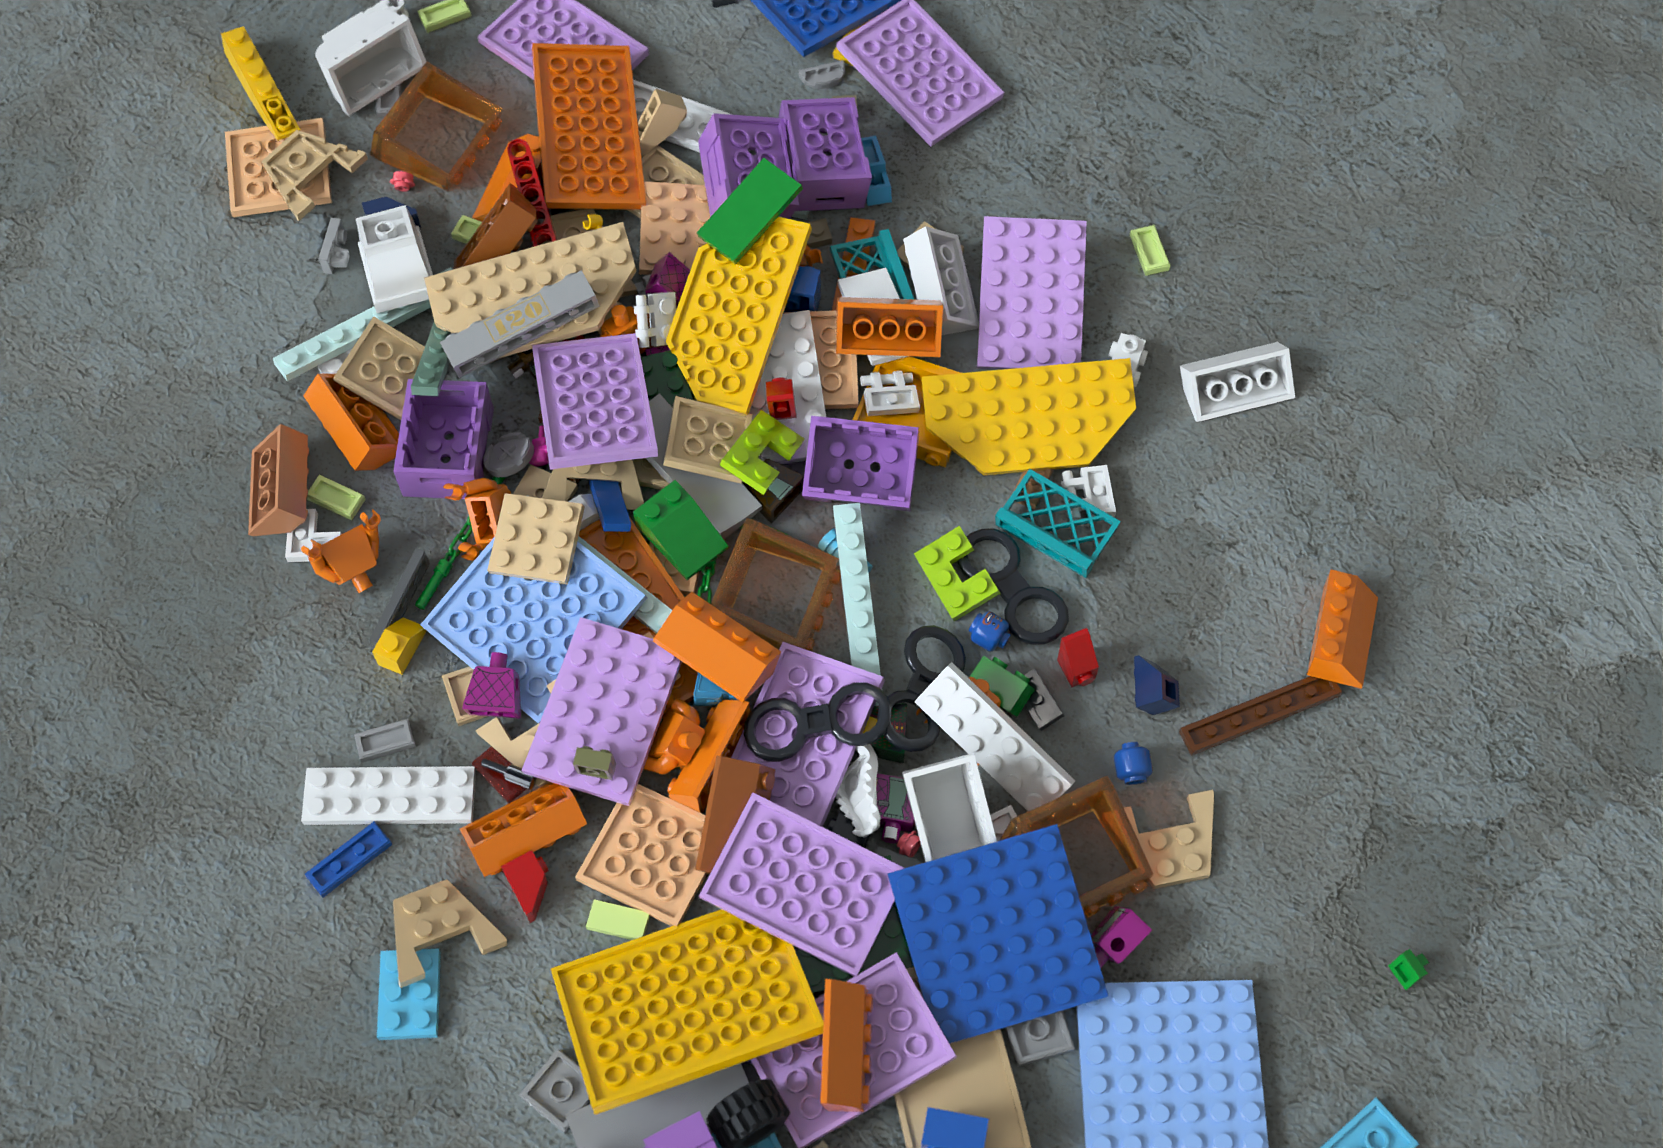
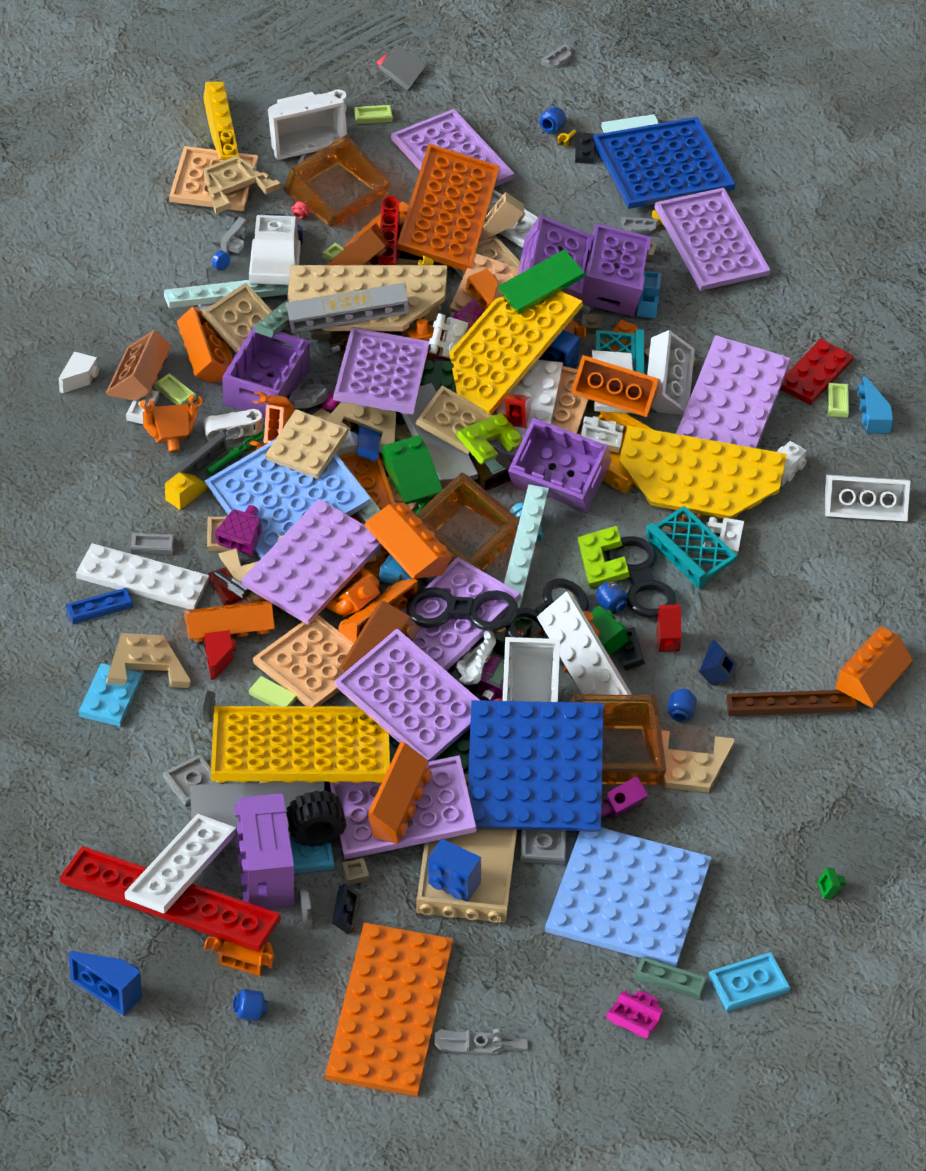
camera: 15 degrees right, 15 degrees down
(202, 512) = (78, 372): none -> white slope
(328, 286) = (221, 260): none -> blue tile
(427, 528) = (233, 424): none -> white piece
(544, 972) = (208, 706): none -> clear smoke tile
(594, 763) = (293, 583): olive piece -> none
(674, 233) = (482, 287): none -> orange slope
(1110, 216) = (815, 371): none -> red plate
(1202, 252) = (876, 410): none -> dark azure slope

